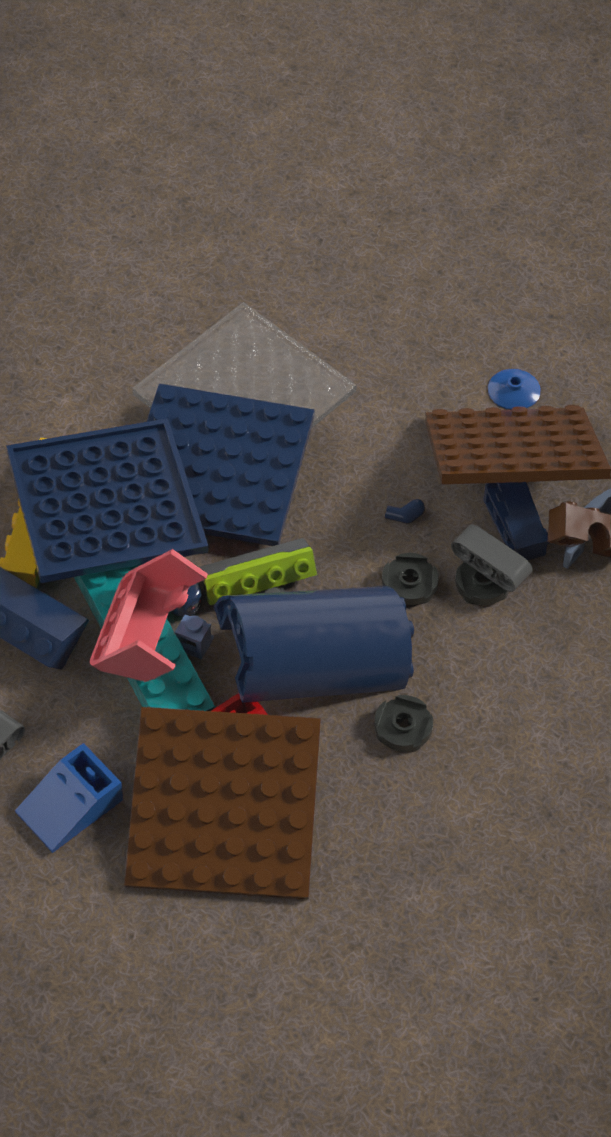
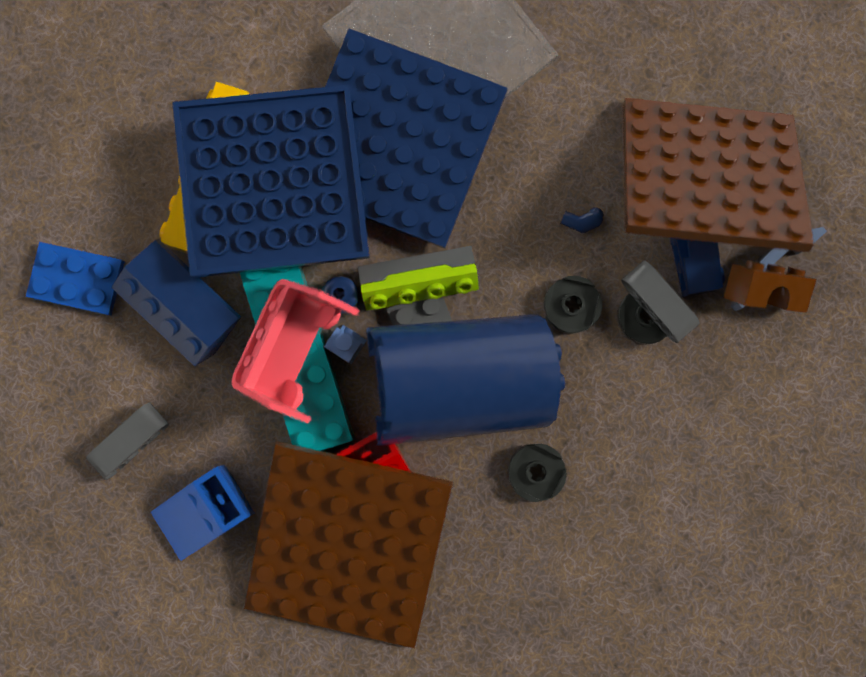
camera: 15 degrees right, 30 degrees up
(508, 395) = (717, 87): blue dish -> none

